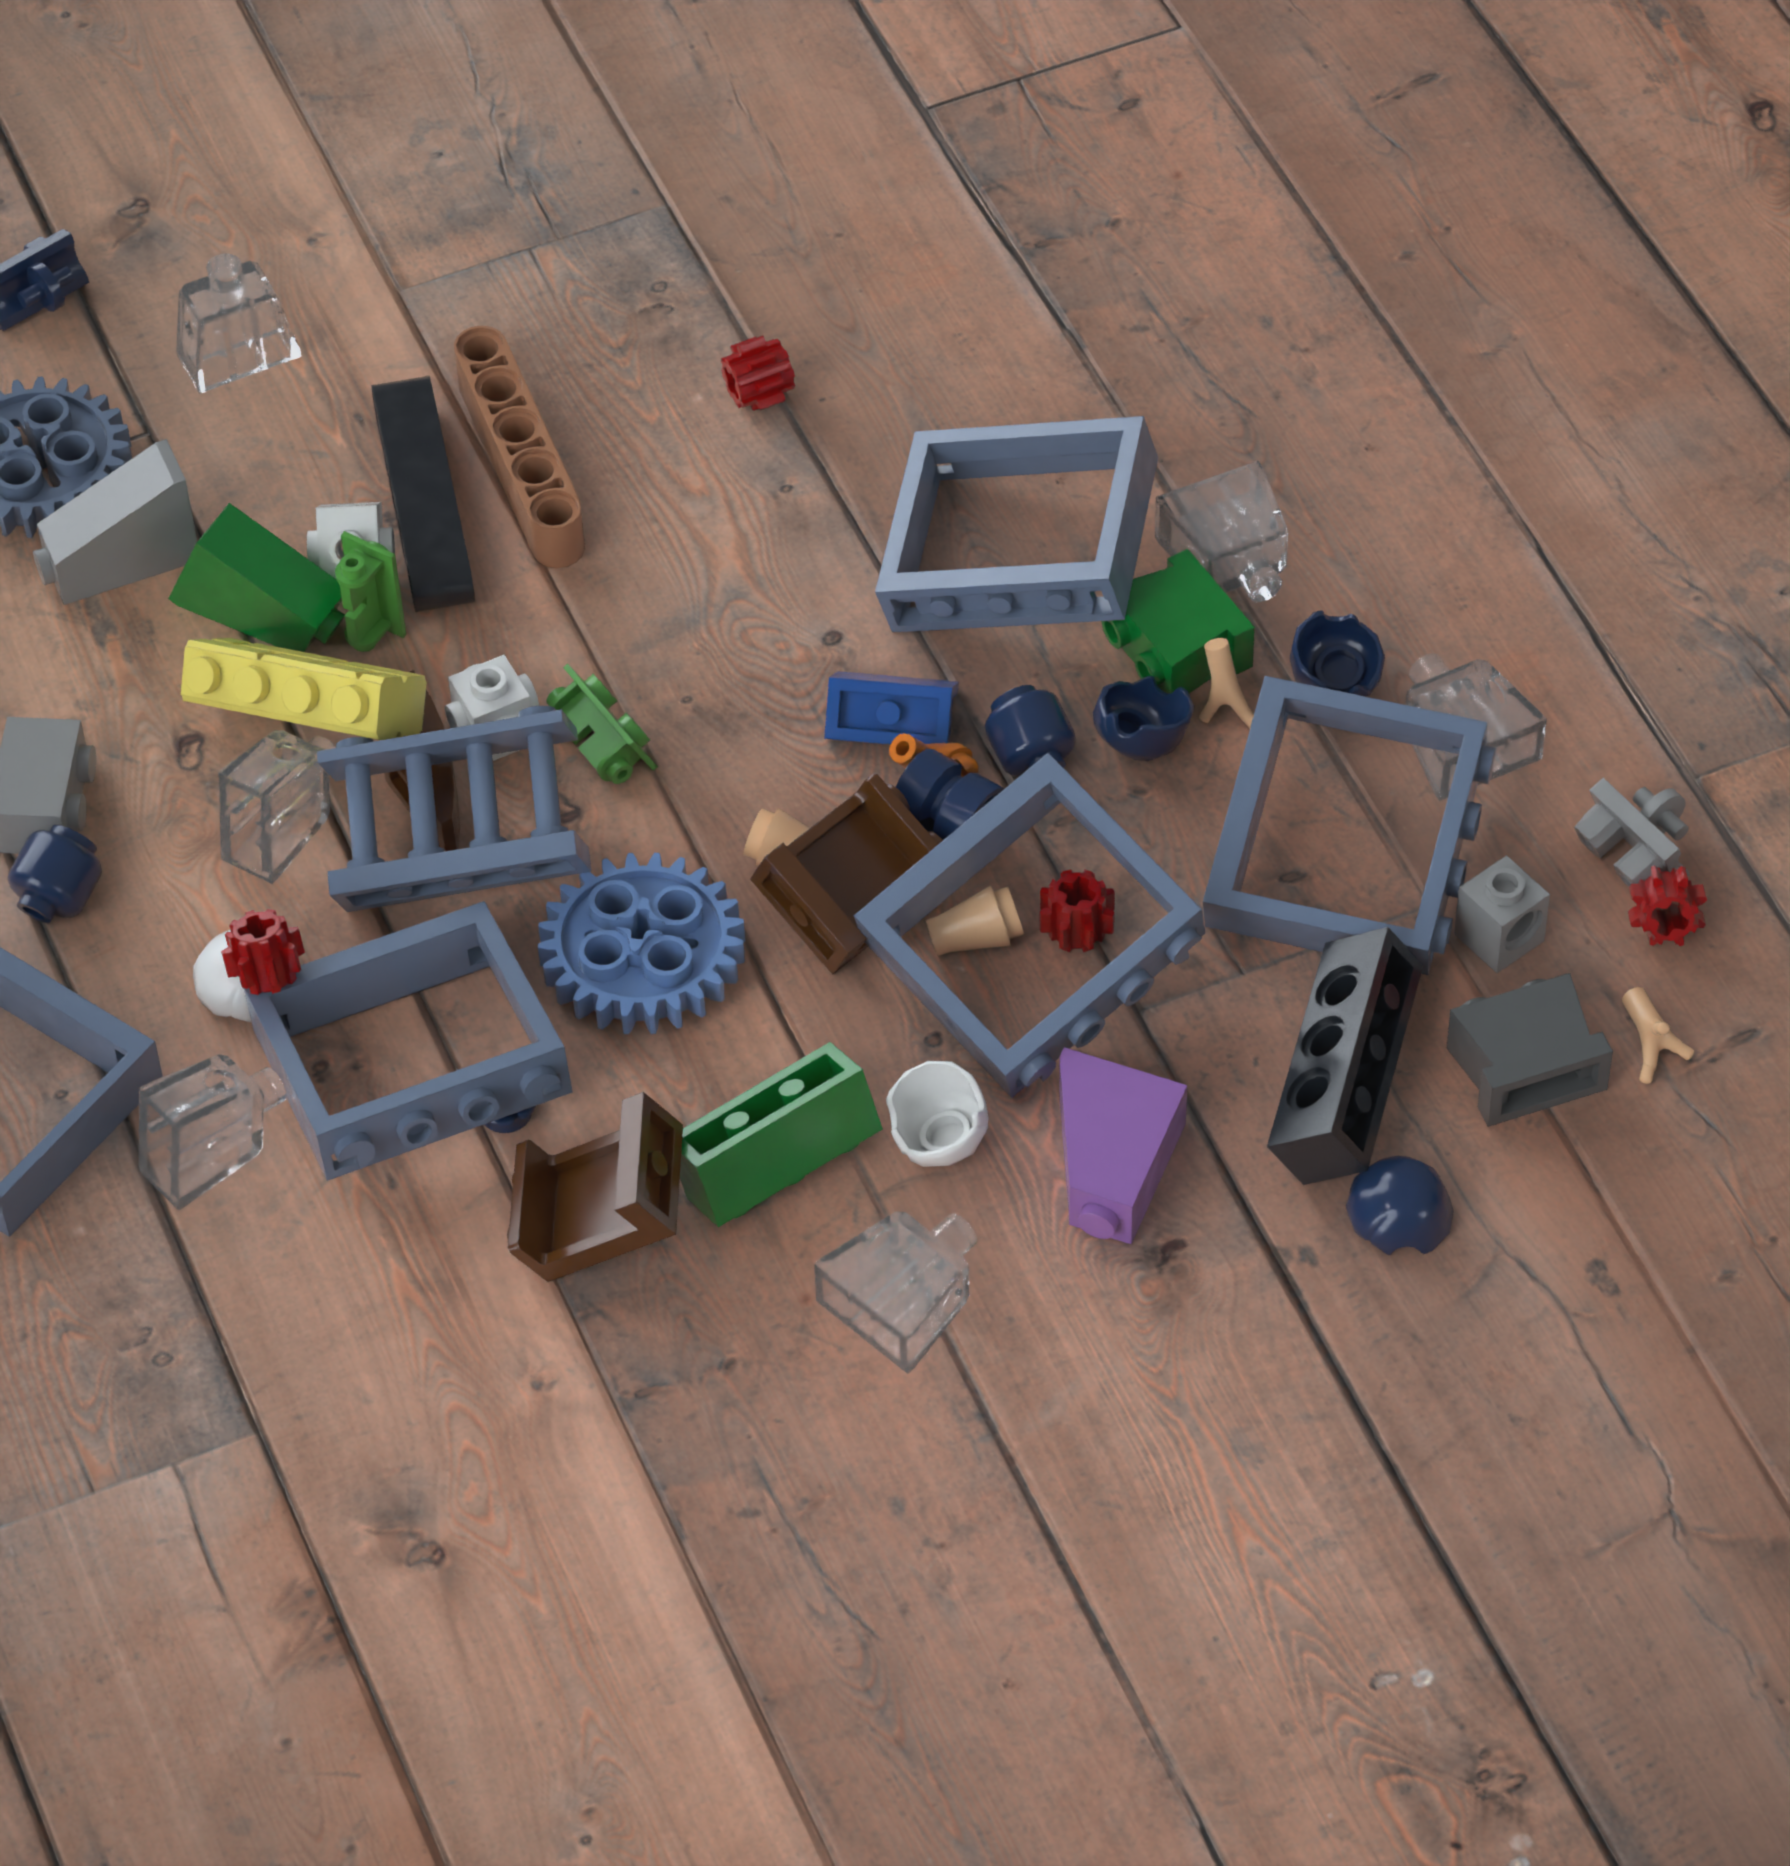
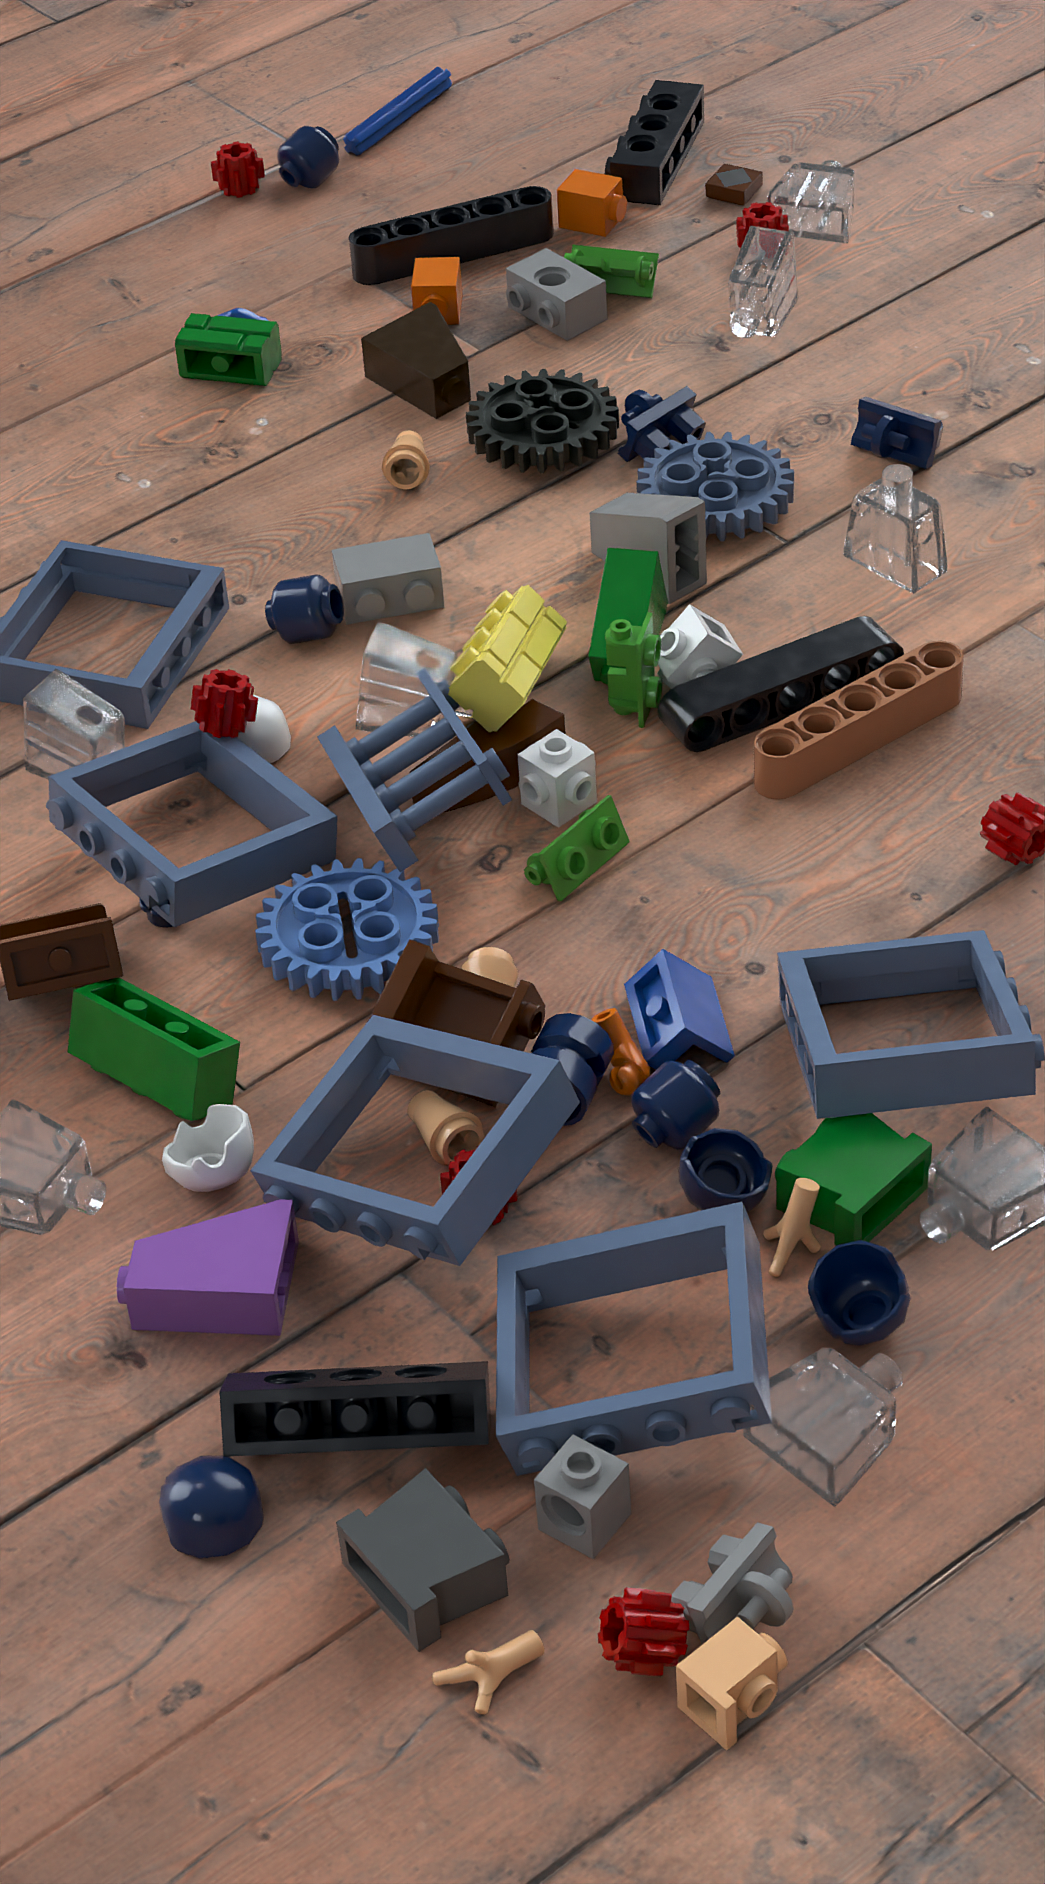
camera: 75 degrees right, 10 degrees down
(1732, 864) = (729, 1680): none -> light nougat brick

